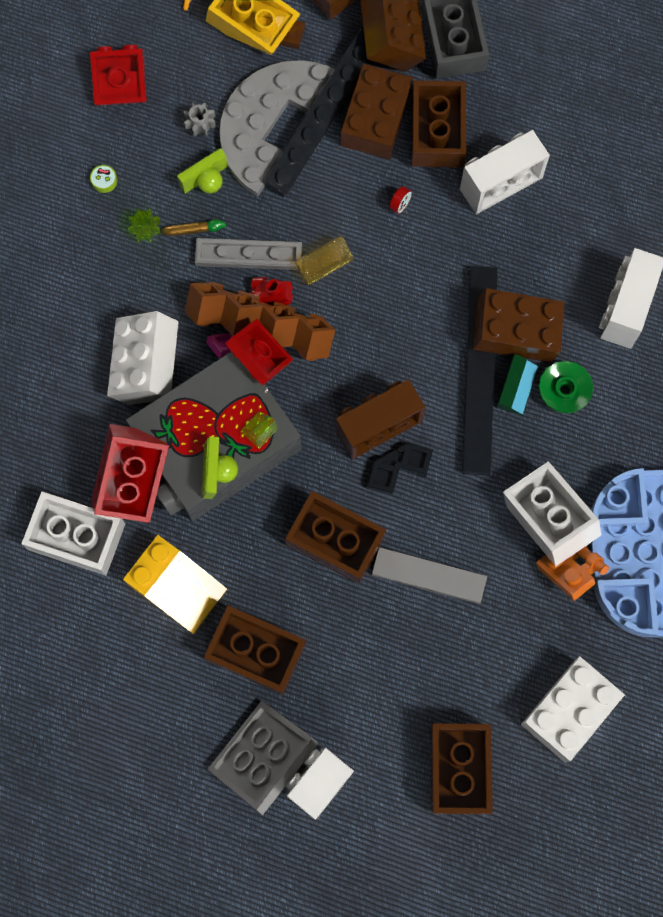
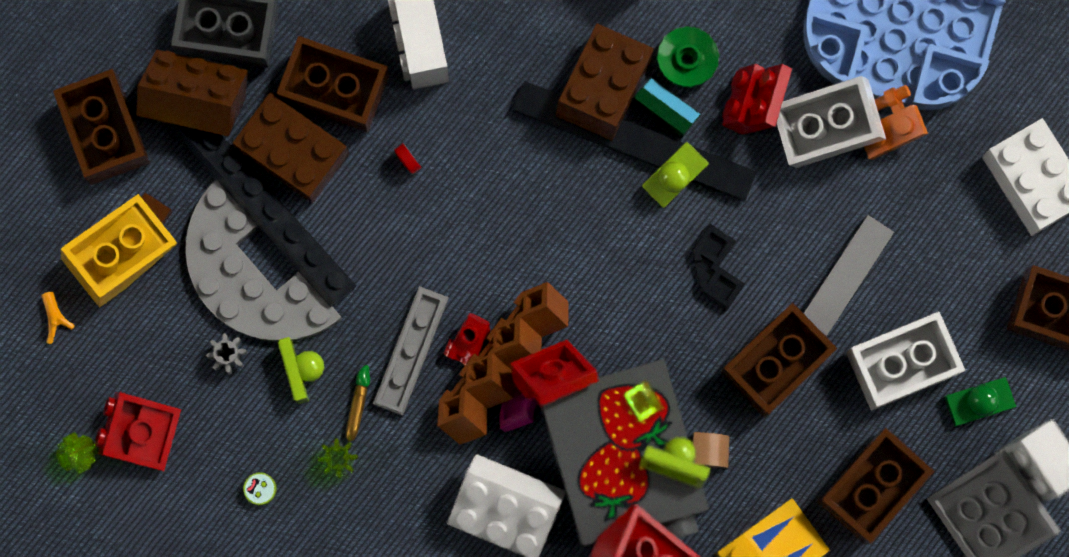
camera: 75 degrees left, 5 degrees up
(87, 38) = (76, 453): none -> clear neon green gear
(243, 508) = (711, 449): none -> medium nougat brick
(324, 260) = (451, 268): clear yellow plate -> none
(360, 722) = (980, 401): none -> green tile
(371, 642) = (905, 361): none -> white brick
(379, 418) = (662, 268): reddish brown brick -> none
(463, 407) = (675, 174): none -> lime tile
(551, 447) = (756, 98): none -> red plate

